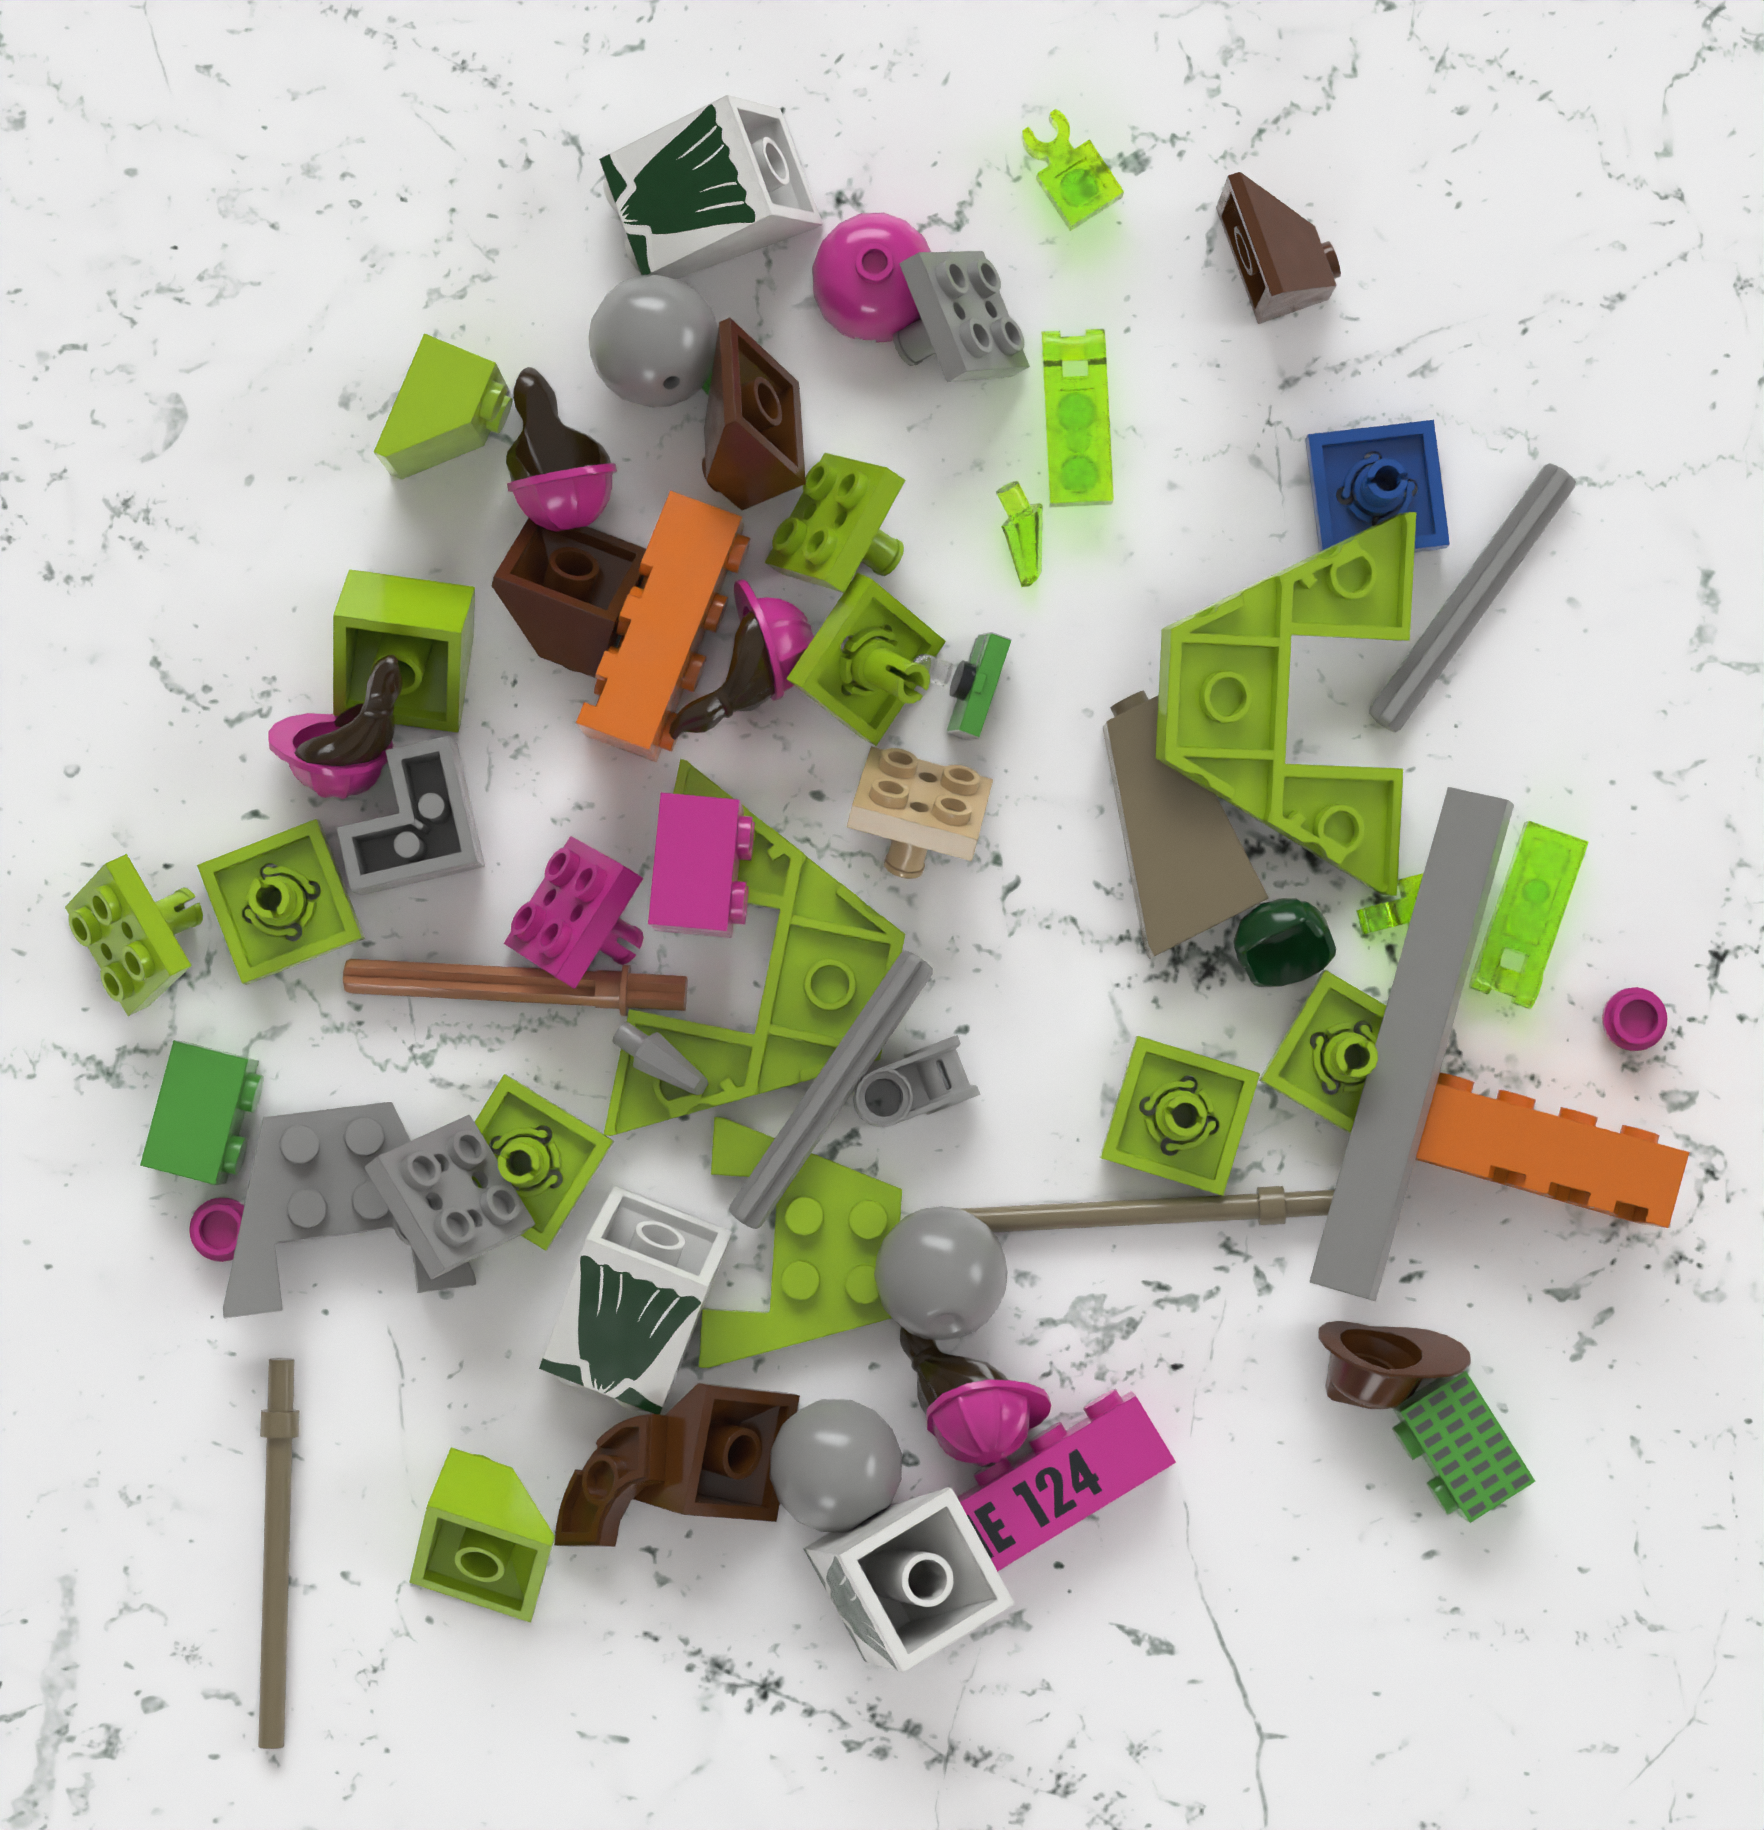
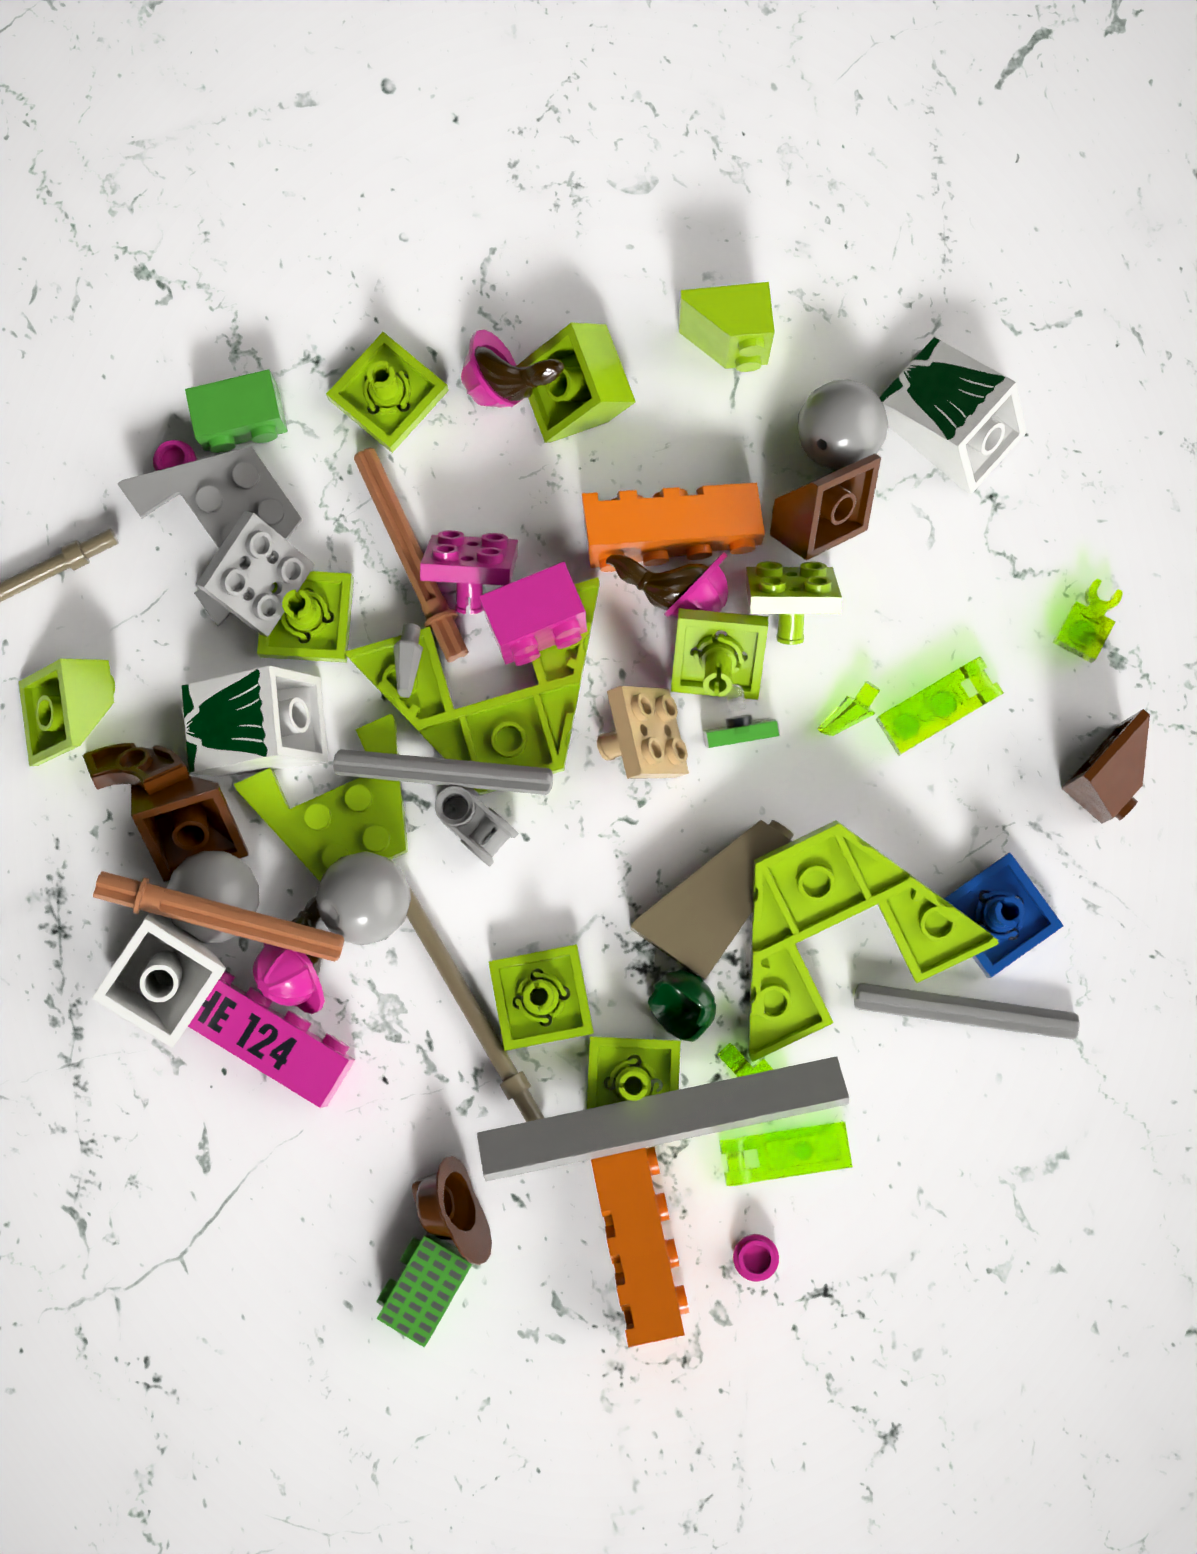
camera: 70 degrees right, 5 degrees down
(132, 933) = (321, 314): lime plate -> none
(431, 832) = (476, 451): light grey brick -> none
(554, 470) = (732, 411): piece -> none
(568, 591) = (664, 451): reddish brown slope -> none
(861, 278) = (956, 539): dark pink cylinder -> none
(877, 1465) = (217, 916): none -> nougat axle
(960, 318) = (961, 599): light grey plate -> none

